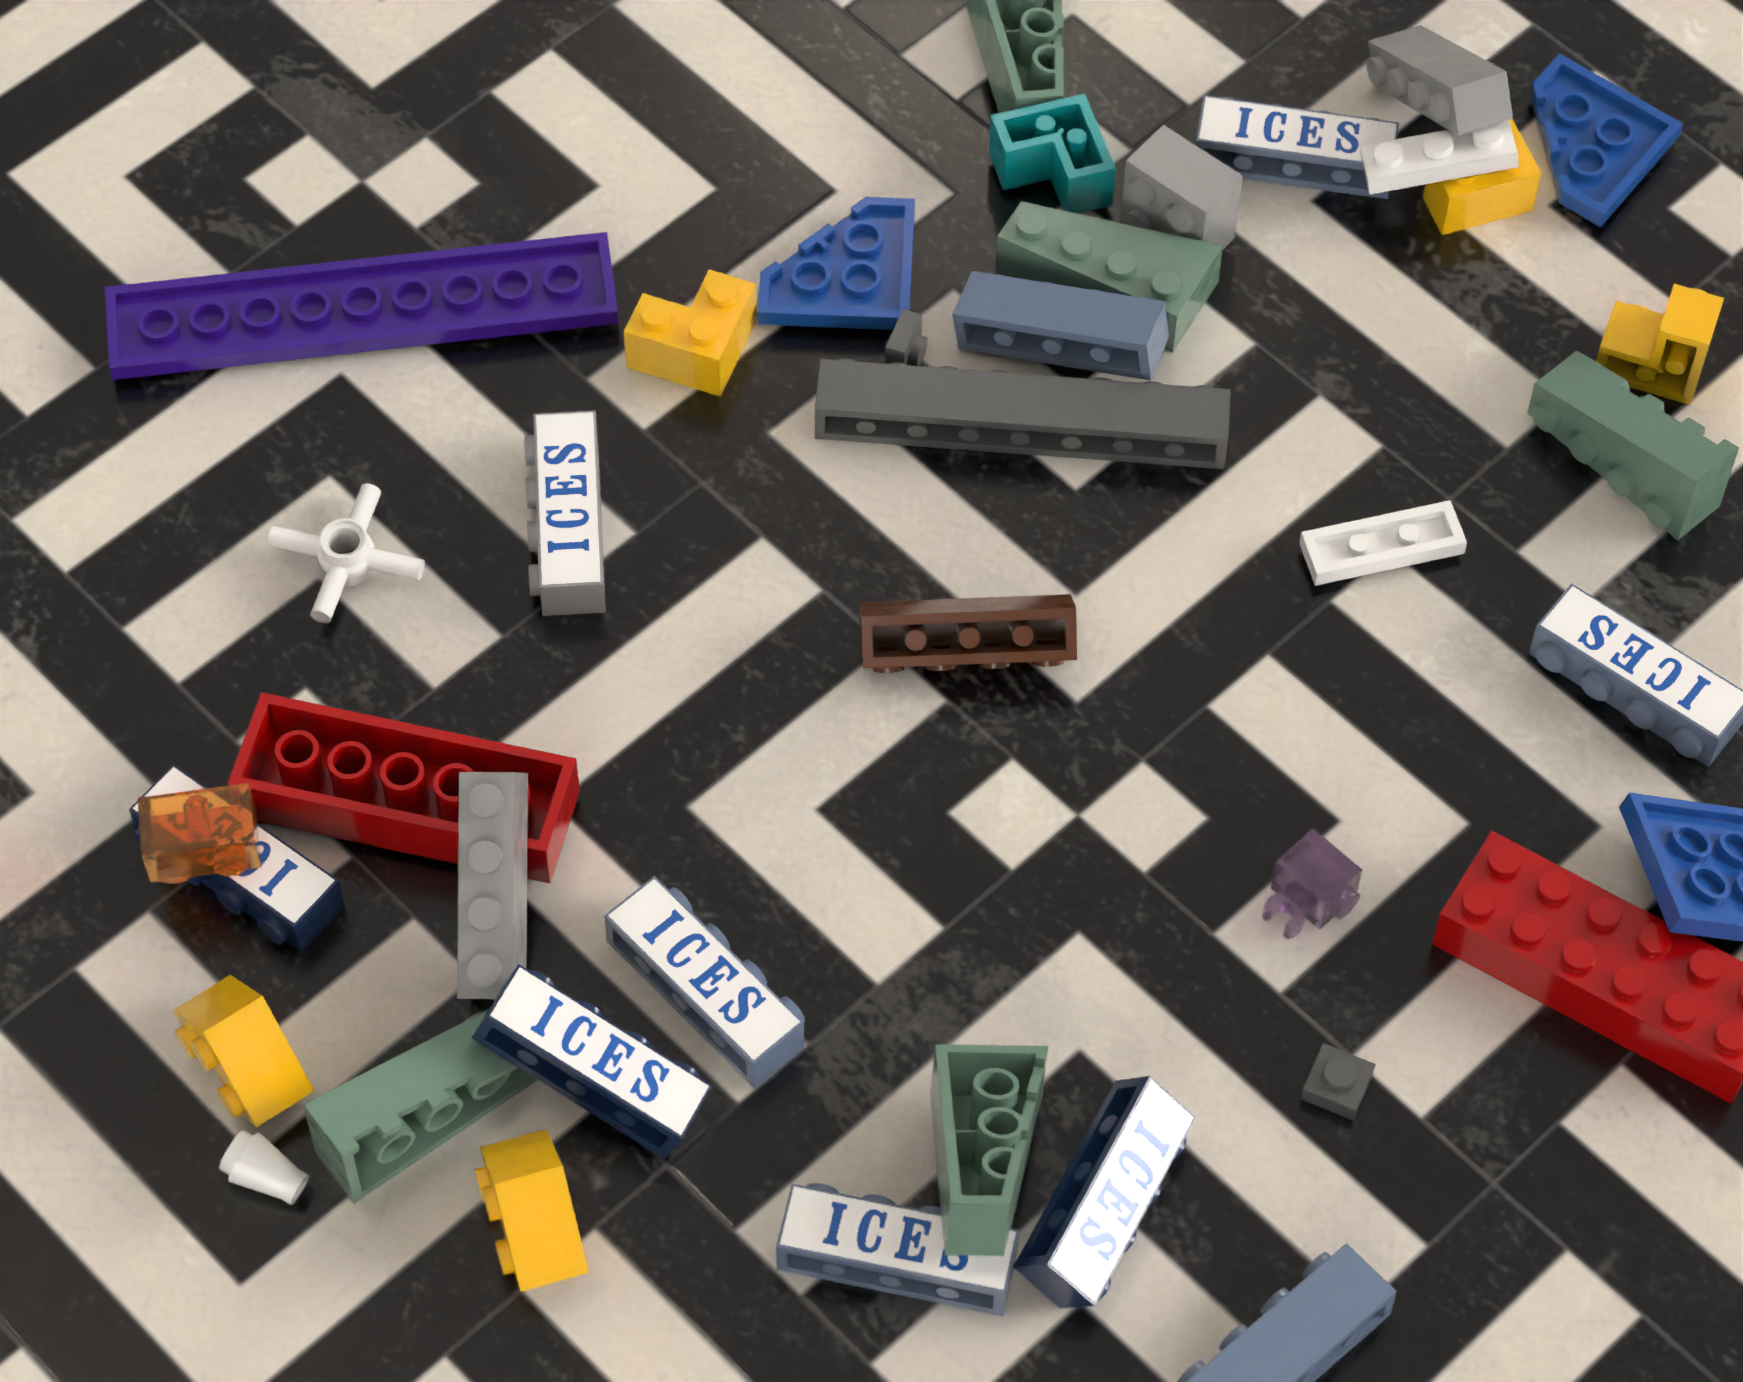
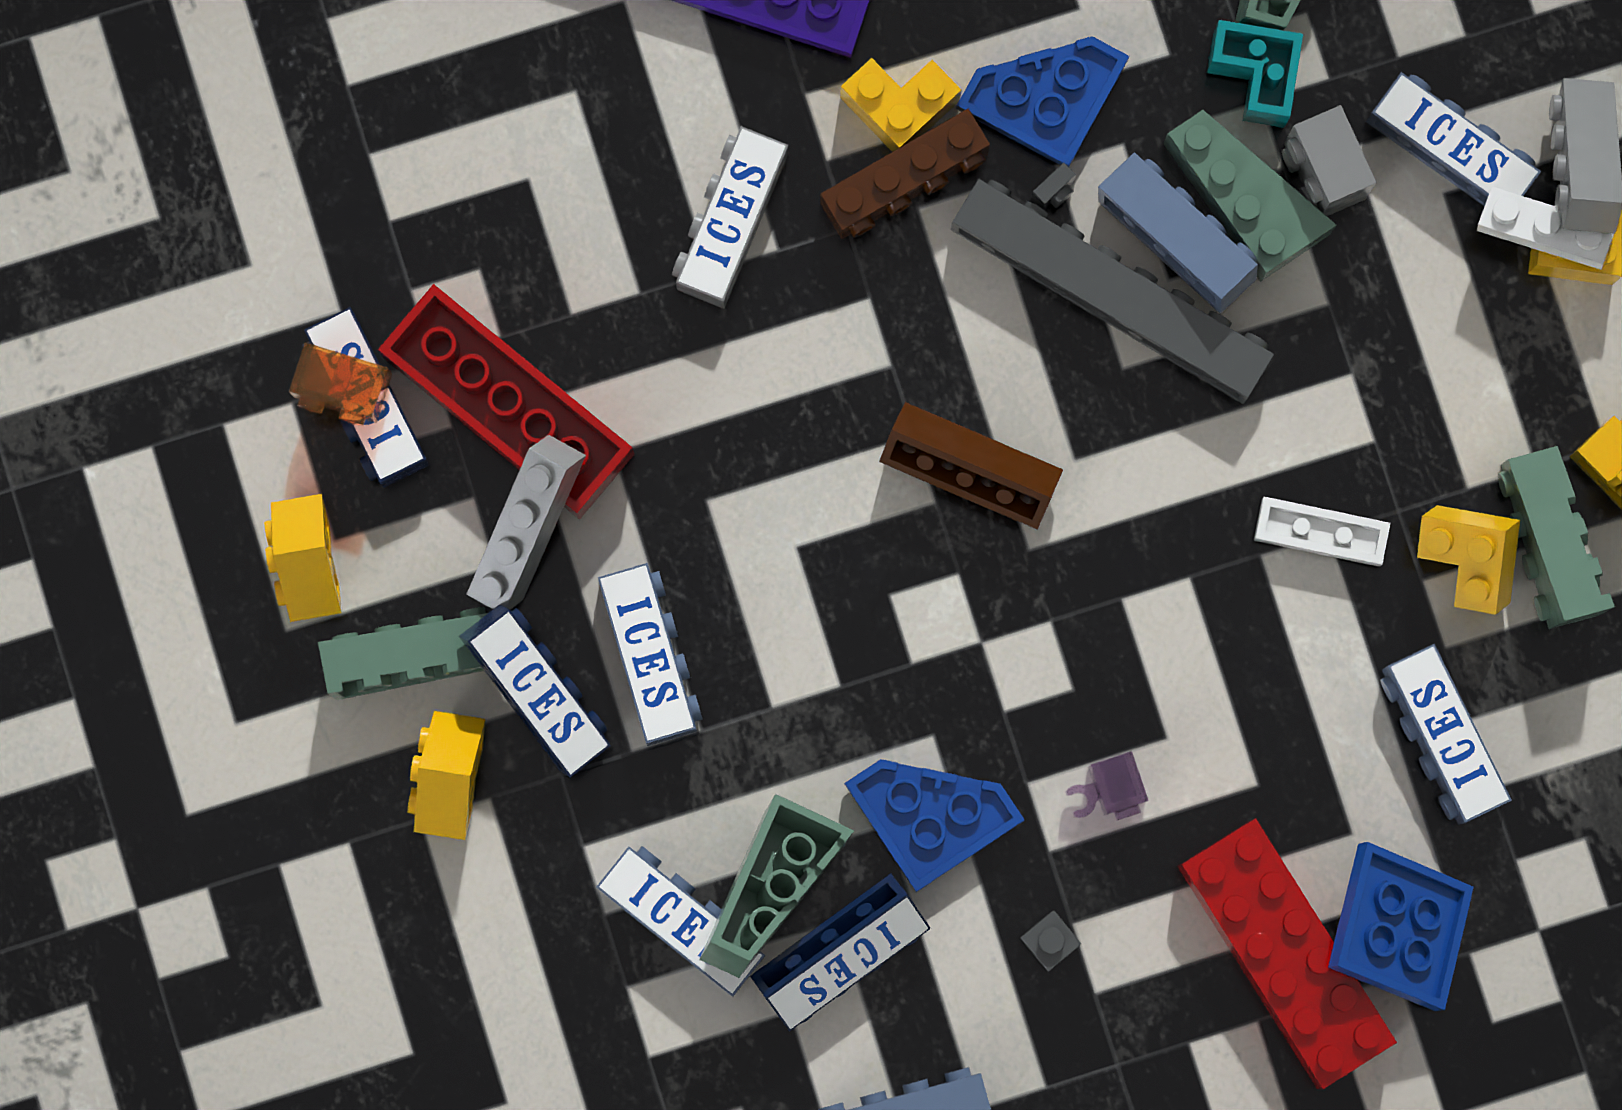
camera: 25 degrees right, 25 degrees up
(262, 1167) = (283, 649): white cone -> none
(350, 568) = (566, 187): white bar -> none
(736, 396) = (904, 174): none -> reddish brown brick
(1124, 1007) = (931, 816): none -> blue plate
(1560, 469) = (1480, 546): none -> yellow brick

